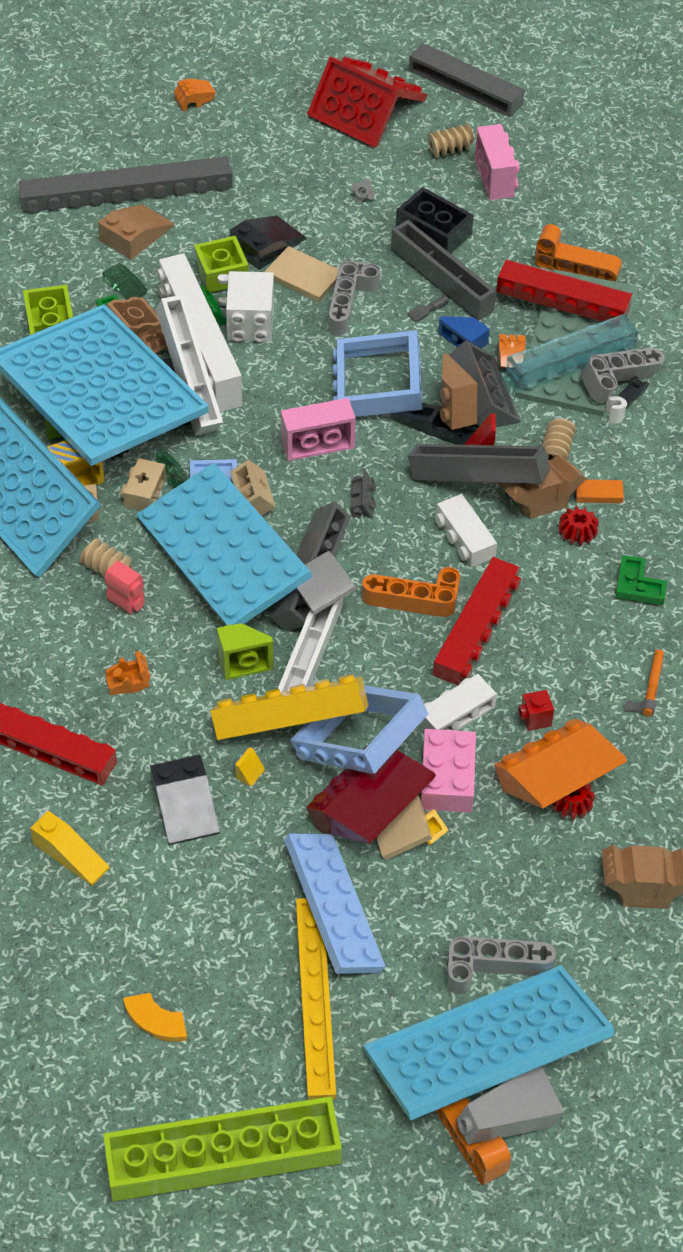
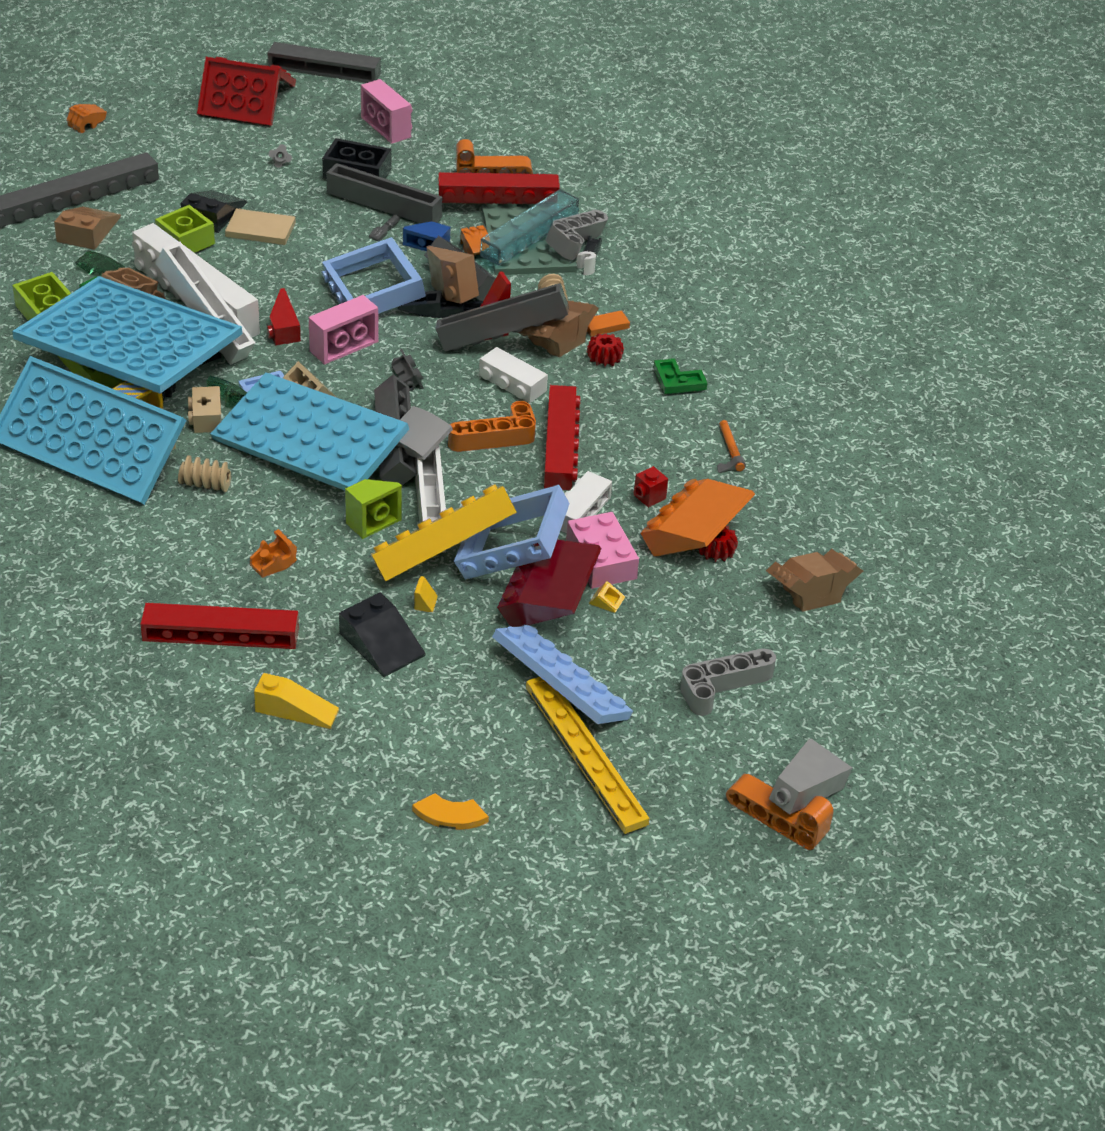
camera: 25 degrees left, 10 degrees down
(124, 587) = (236, 486): coral brick -> none
(222, 1148) = (572, 891): lime brick -> none
(248, 305) = (230, 251): white container -> none
(267, 398) = (284, 324): none -> red slope
(351, 278) = (307, 221): light grey beam -> none
(405, 831) = (593, 605): tan tile -> none
(450, 139) = (336, 105): tan piece -> none
(487, 1041) = (757, 735): medium azure plate -> none

